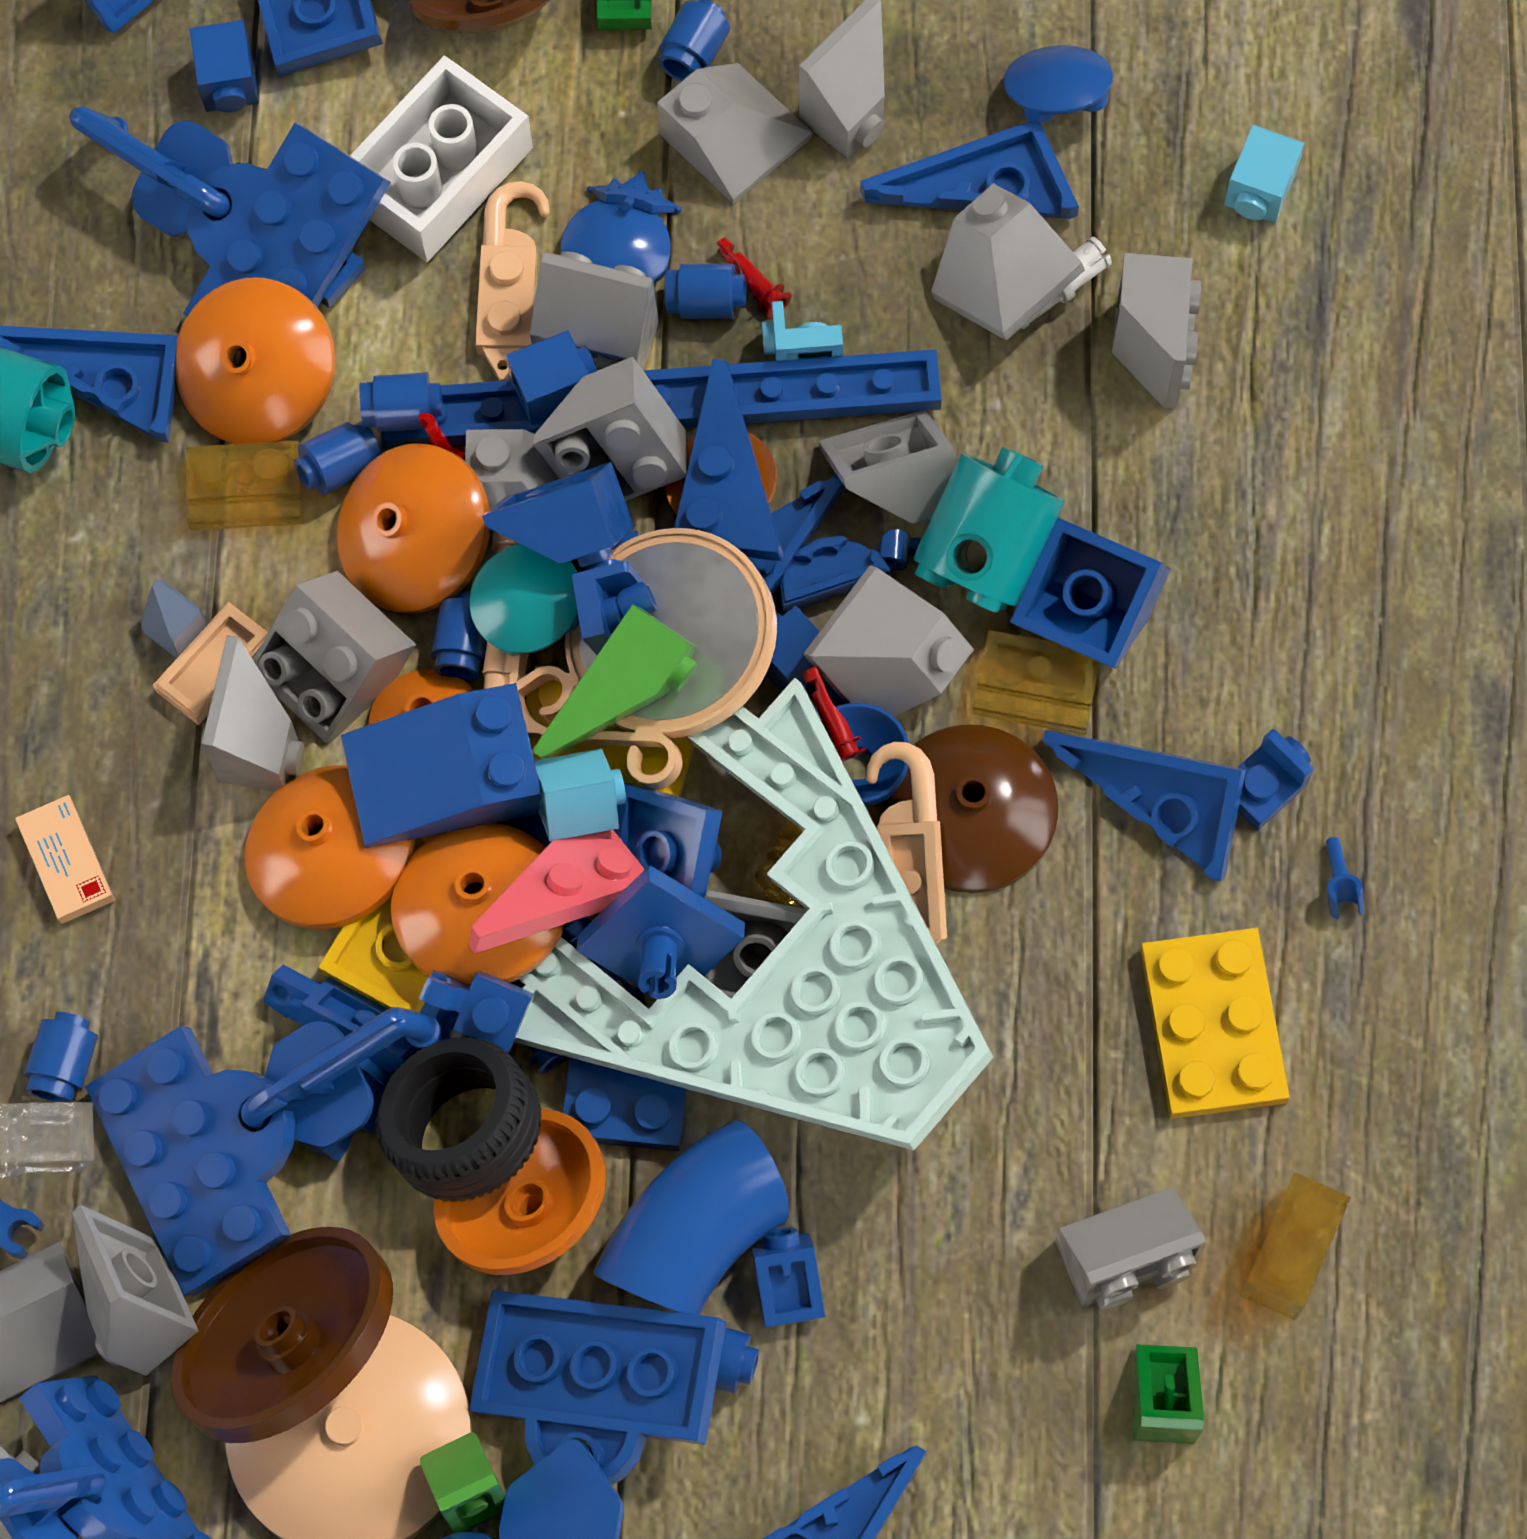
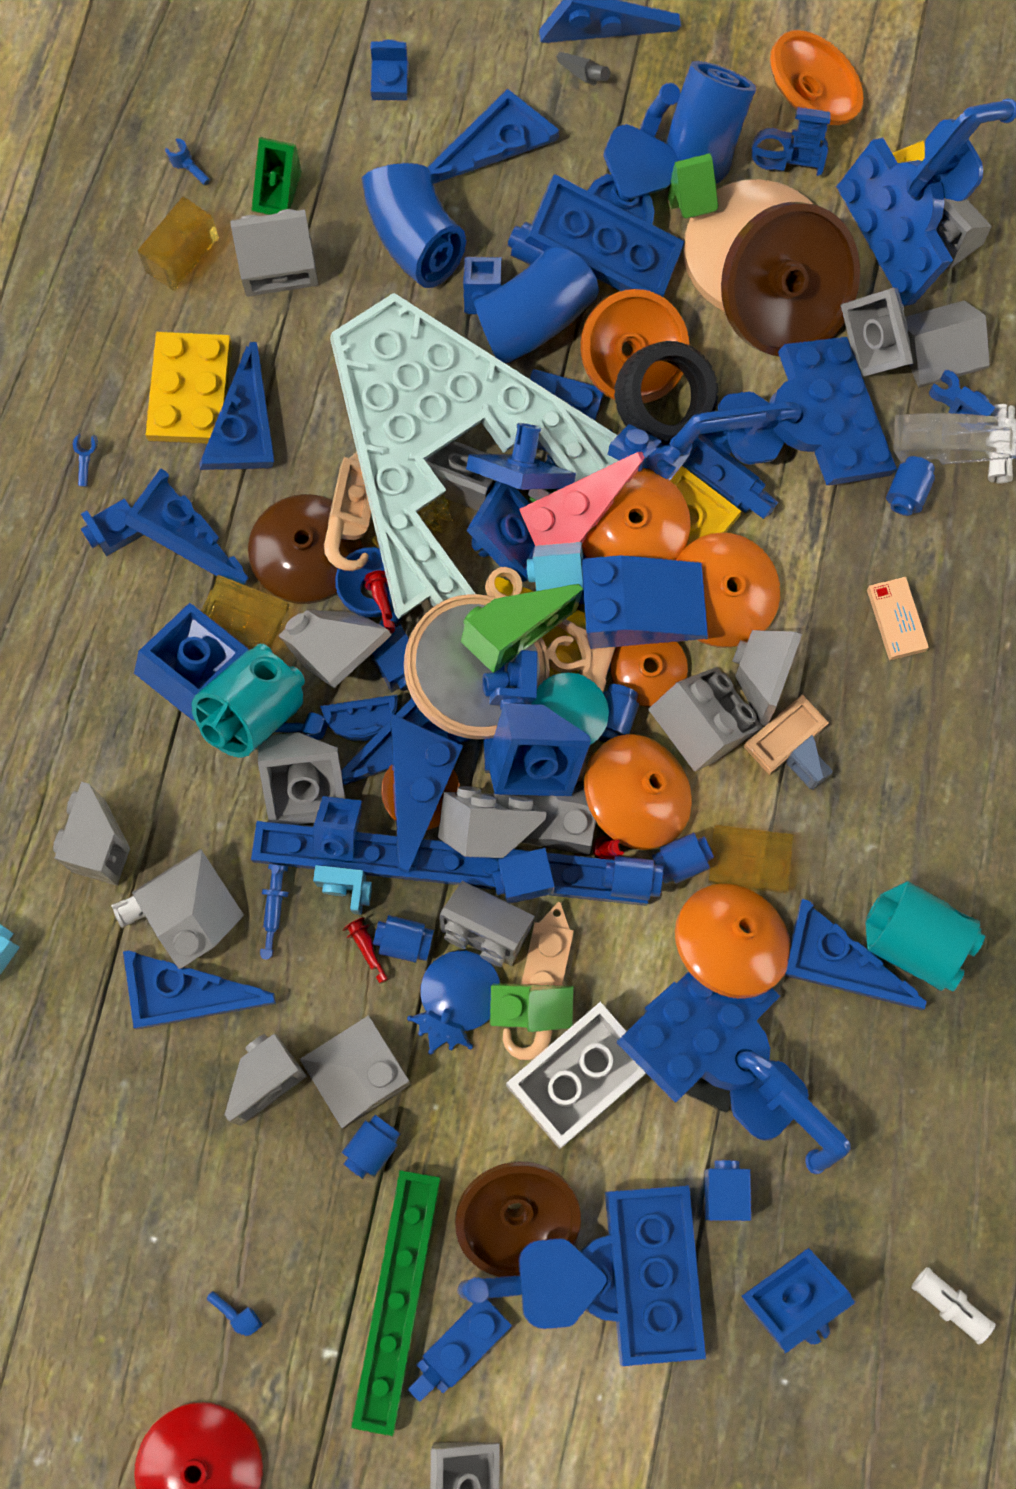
camera: 170 degrees left, 5 degrees up
(504, 231) = (532, 1006): none -> bright green slope
(826, 403) = (336, 828): none -> blue bracket
(894, 318) = (273, 907): none -> blue piece
(923, 1345) = (413, 222): none -> blue brick
(1058, 82) = (110, 1057): blue dish -> none
(1111, 962) = (242, 428): none -> blue wing
(1325, 1412) = (183, 160): none -> blue hand

